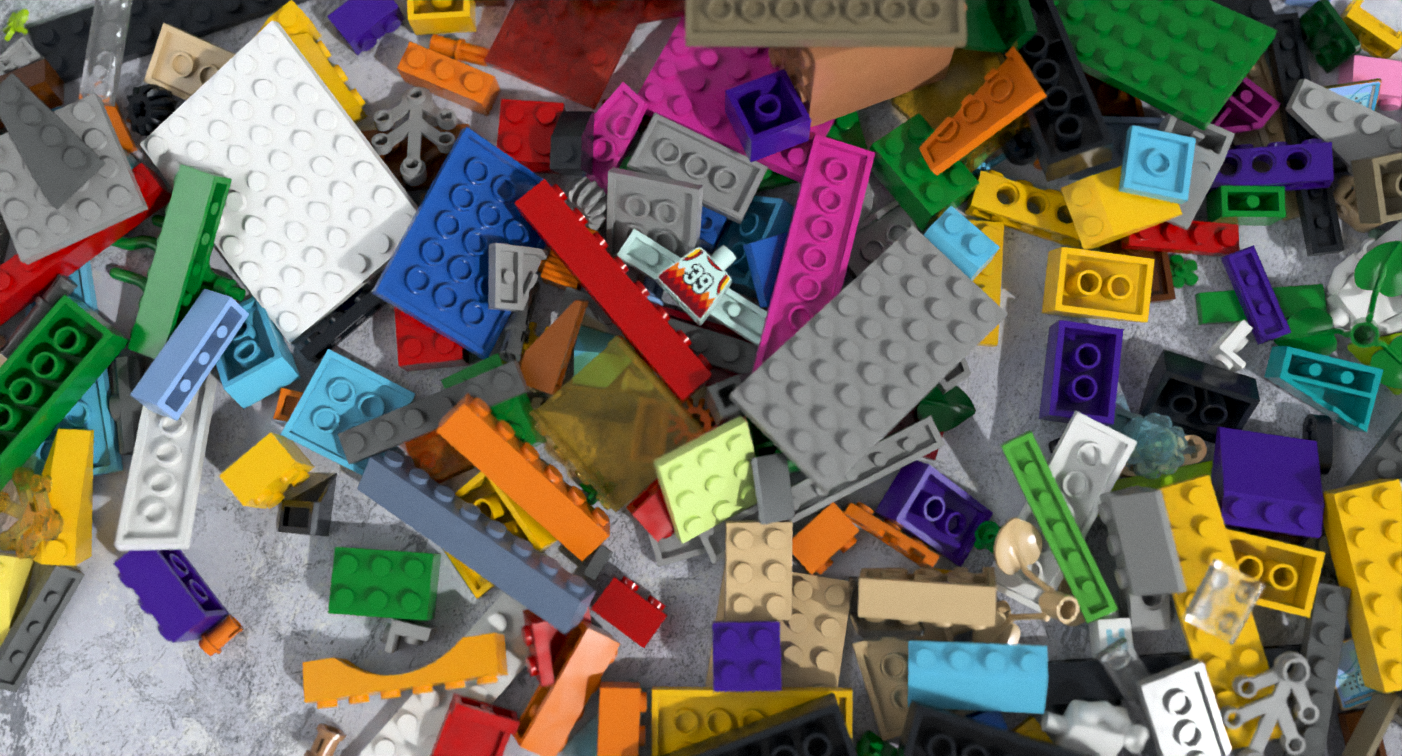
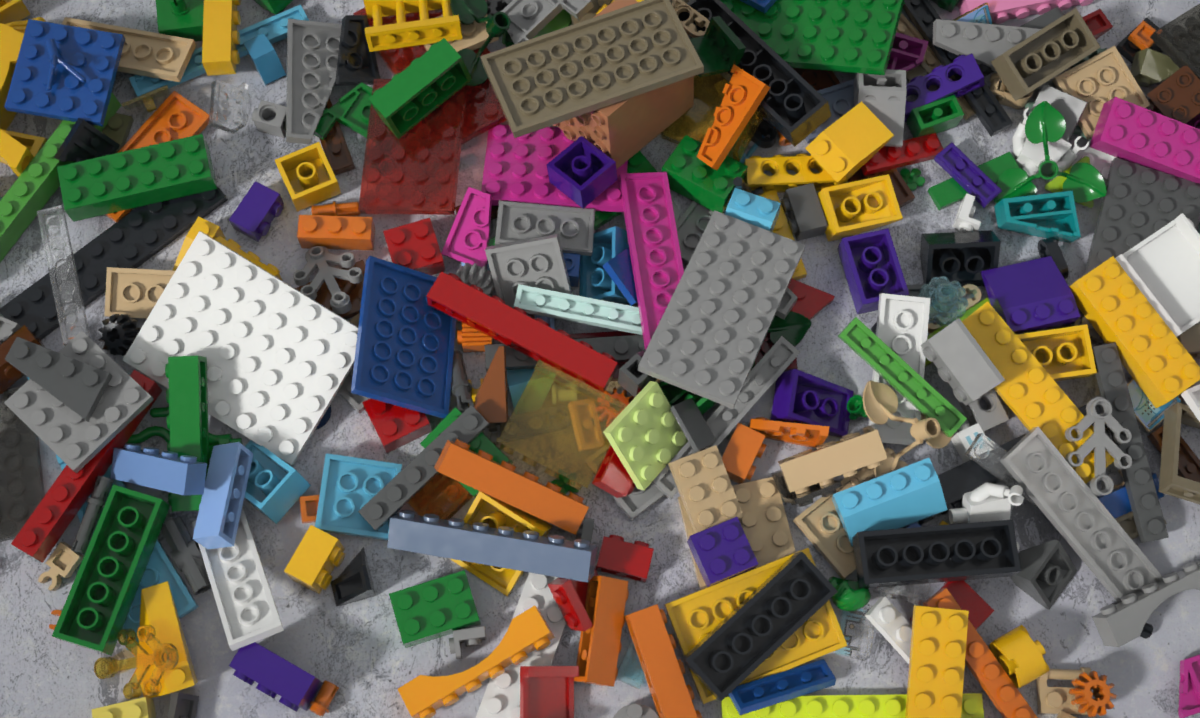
camera: 25 degrees left, 10 degrees down
(124, 297) = (159, 471): none -> medium blue brick
(342, 326) = (327, 435): black plate -> none
(512, 275) = (443, 349): light grey wing -> none
(573, 143) = (449, 242): black slope -> none
(698, 281) = (580, 302): torso -> none
(963, 208) = (741, 184): none -> black piece
(986, 378) = (809, 299): none -> red wing
(1027, 265) = (804, 212): none -> dark grey brick
(1157, 164) = (863, 108): medium azure plate -> none
(1223, 601) = (1033, 380): clear bracket -> none

